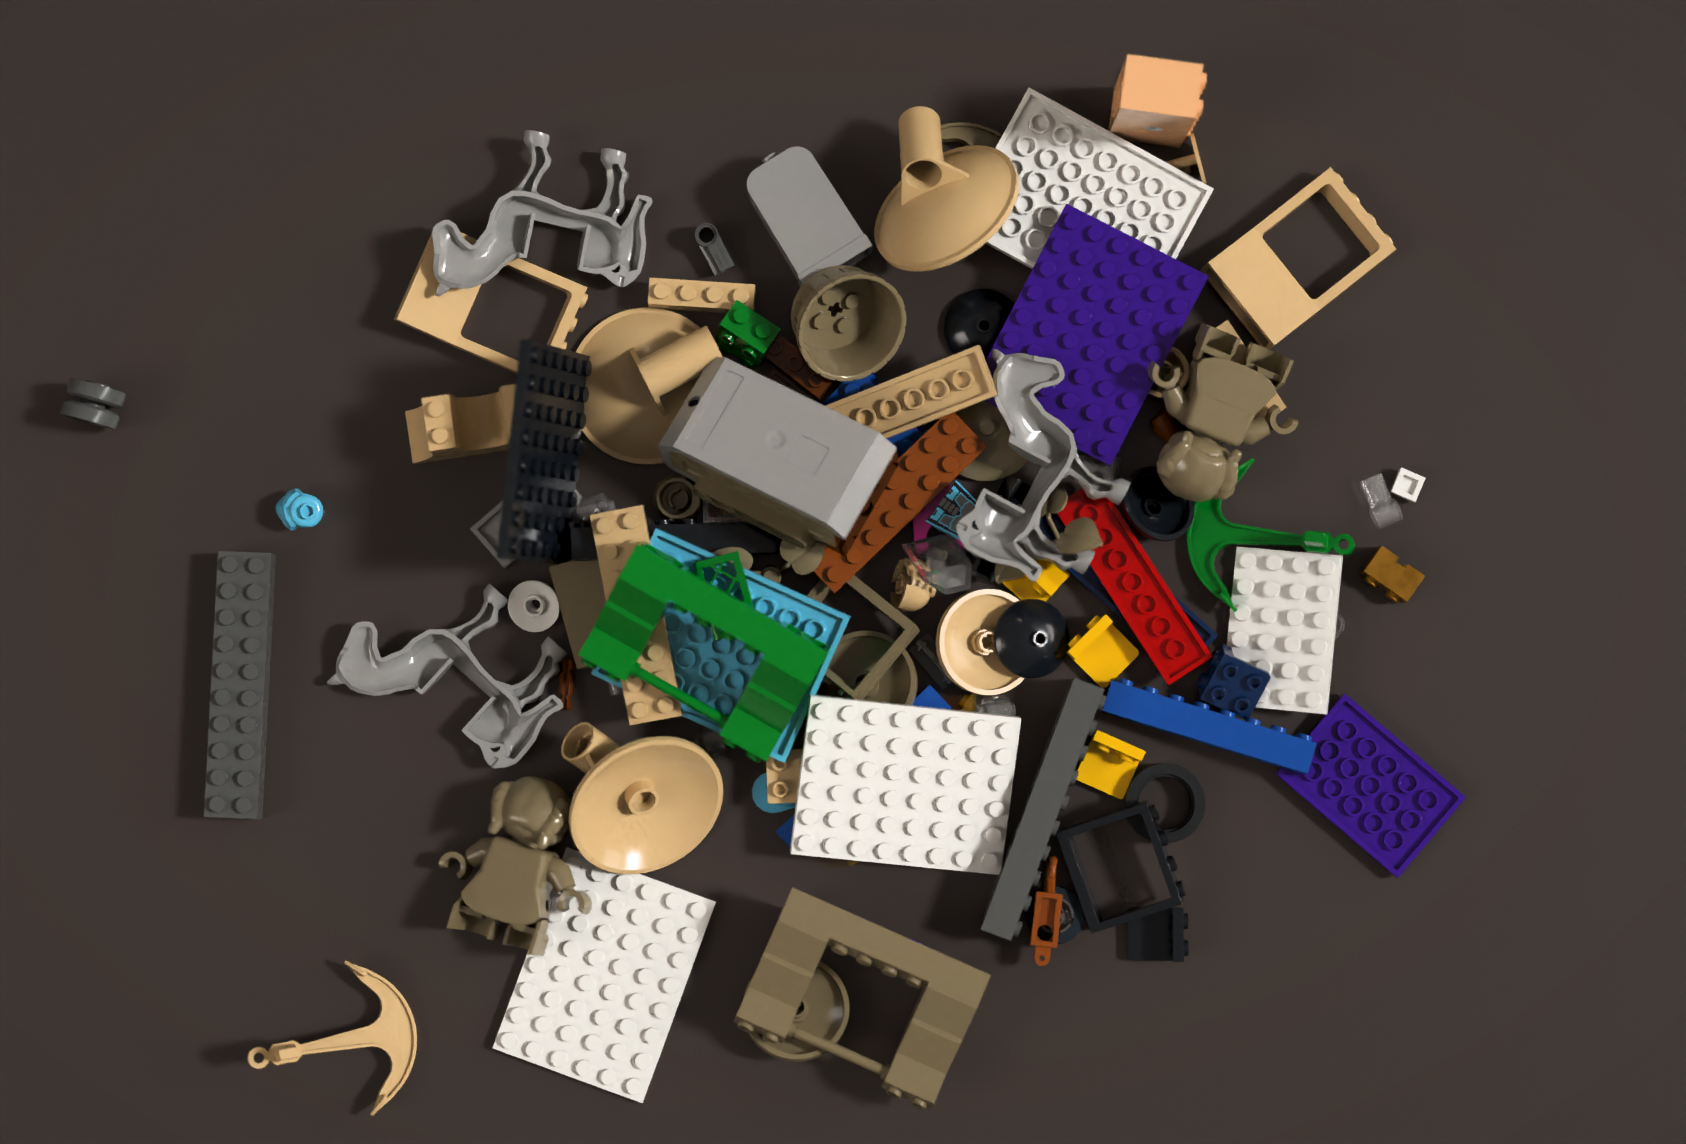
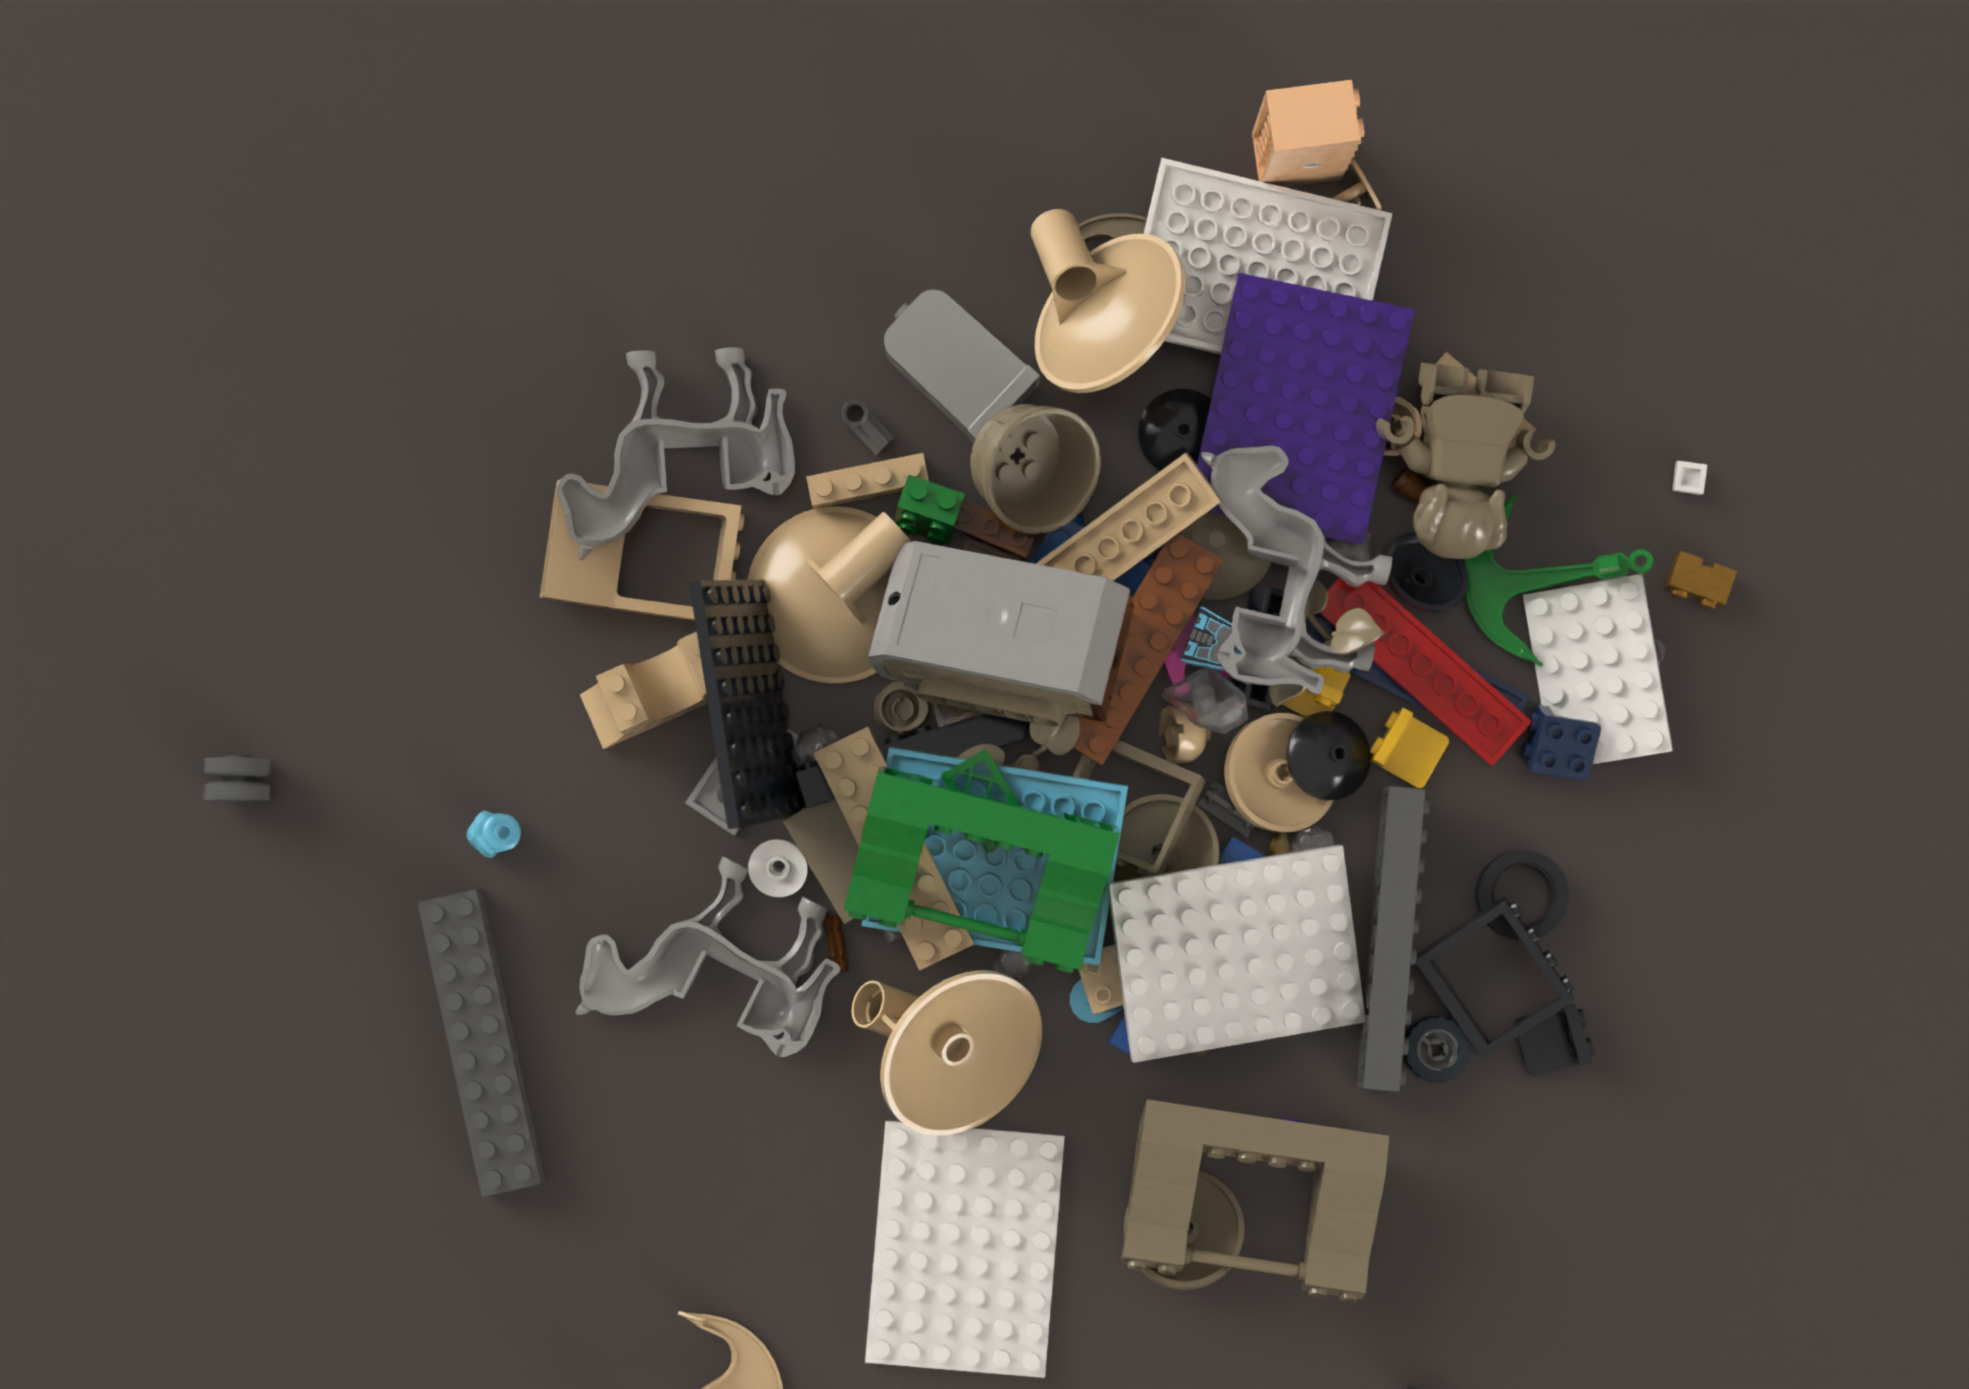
camera: 10 degrees left, 0 degrees up
(517, 870) = (841, 1162): dark tan piece -> none
(1046, 912) = (1428, 1048): dark orange piece -> none
(1109, 764) = (1451, 869): yellow bracket -> none
(1209, 727) = (1549, 799): blue brick -> none
(1260, 285) = (1473, 306): tan window -> none
(1373, 786) = (1739, 814): dark purple plate -> none
(1383, 508) = (1670, 510): clear piece -> none

